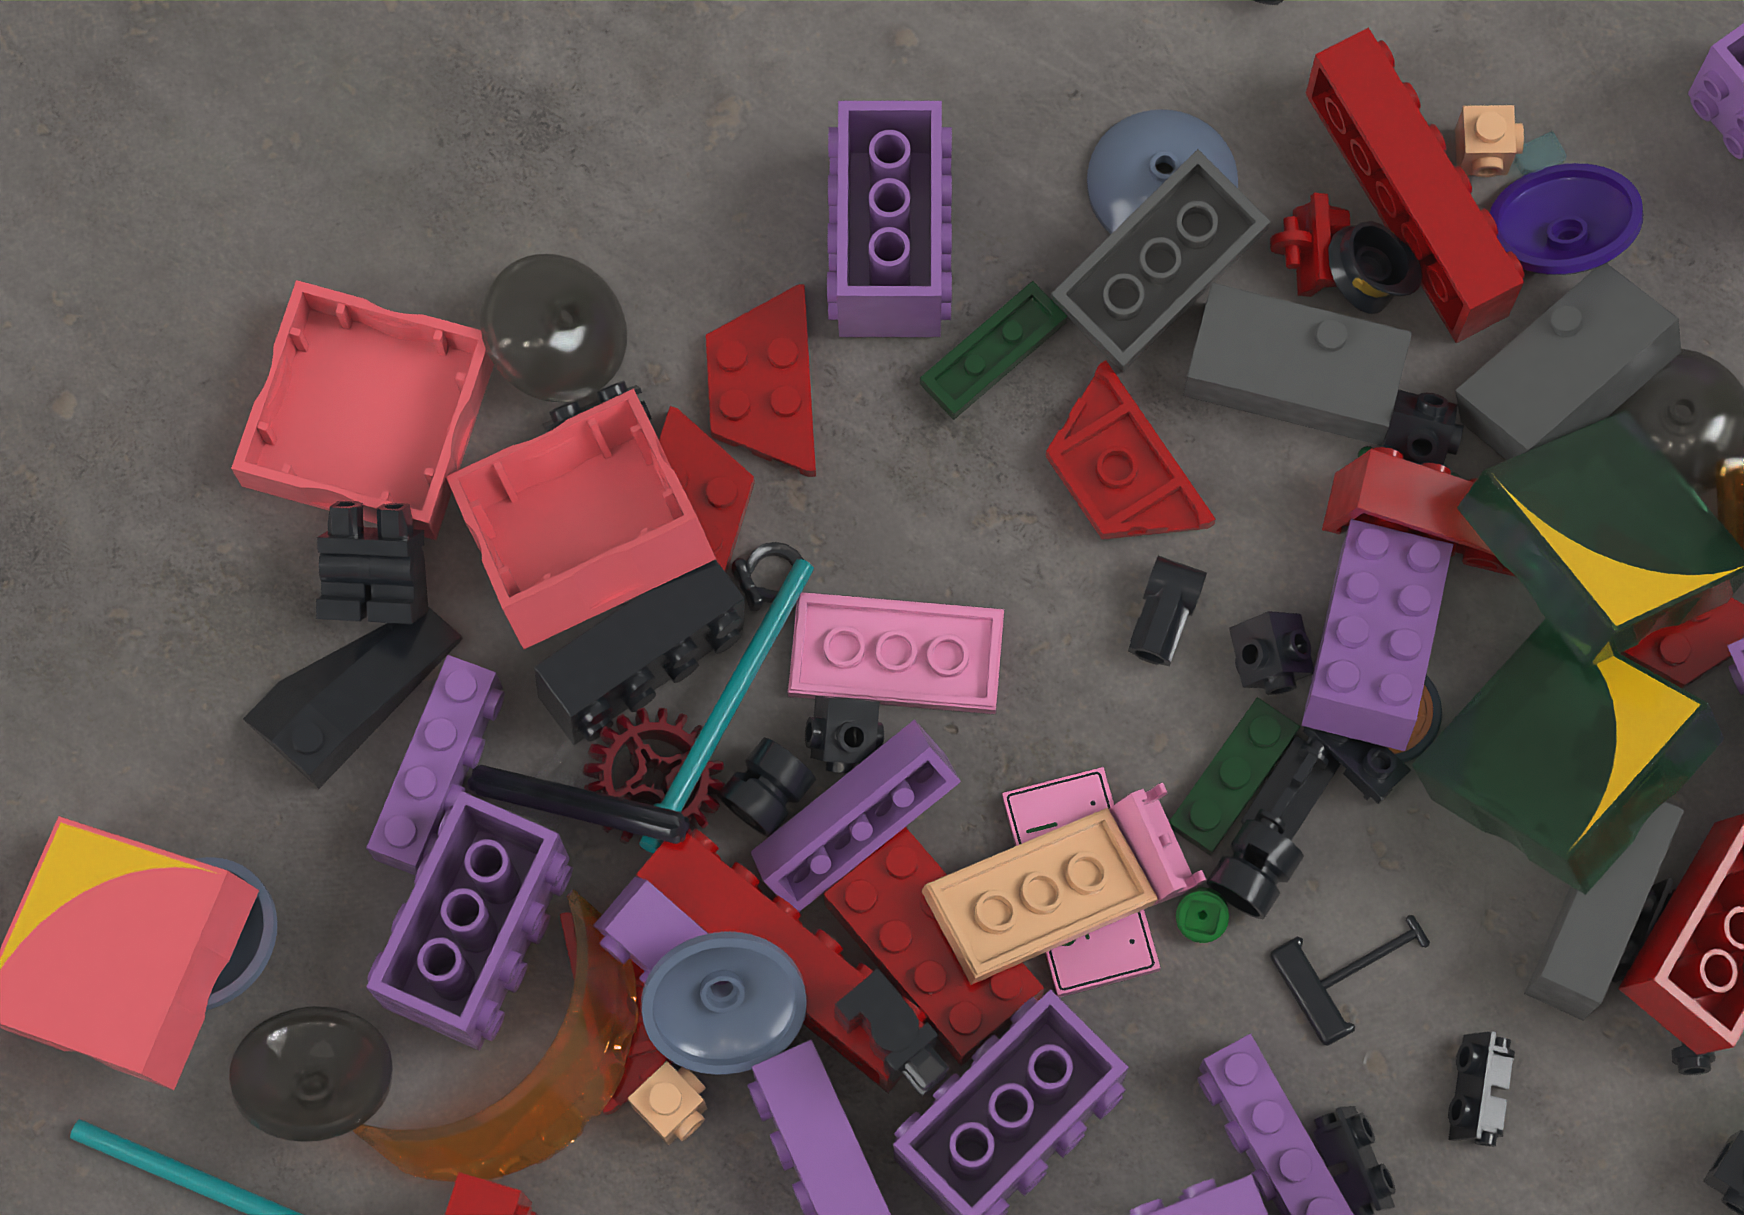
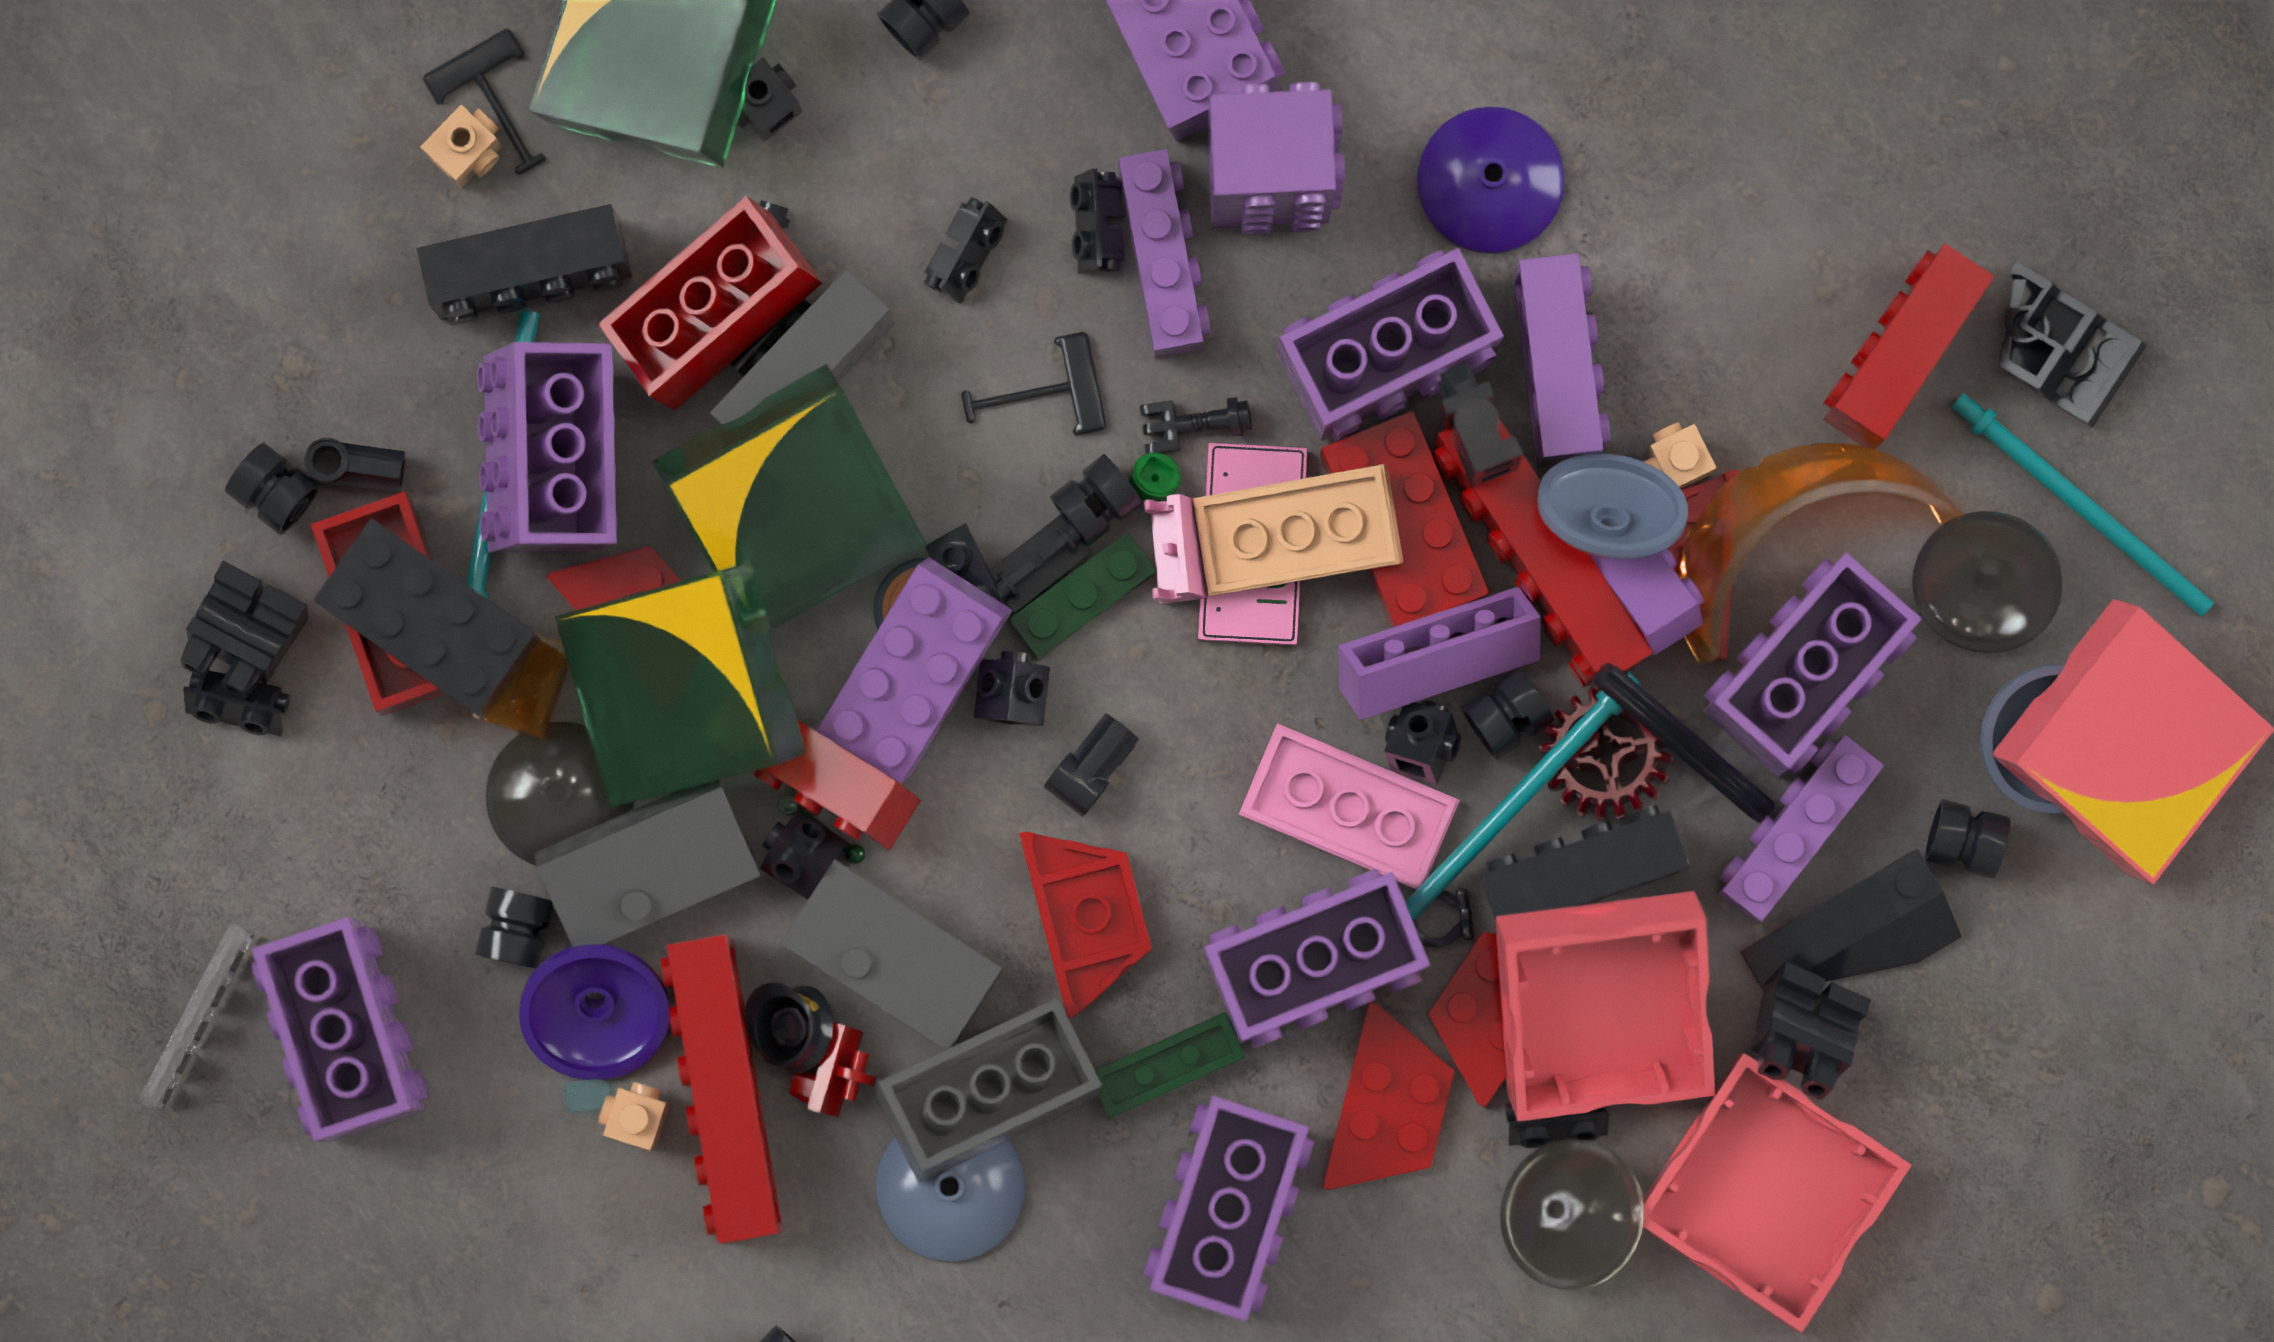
camera: 165 degrees left, 10 degrees up
(261, 810) = (1965, 838): none -> black wheel
(883, 477) = (1316, 958): none -> medium lavender brick
(1142, 1003) = (1235, 416): none -> black hinge
(1671, 269) = (514, 927): none -> black wheel

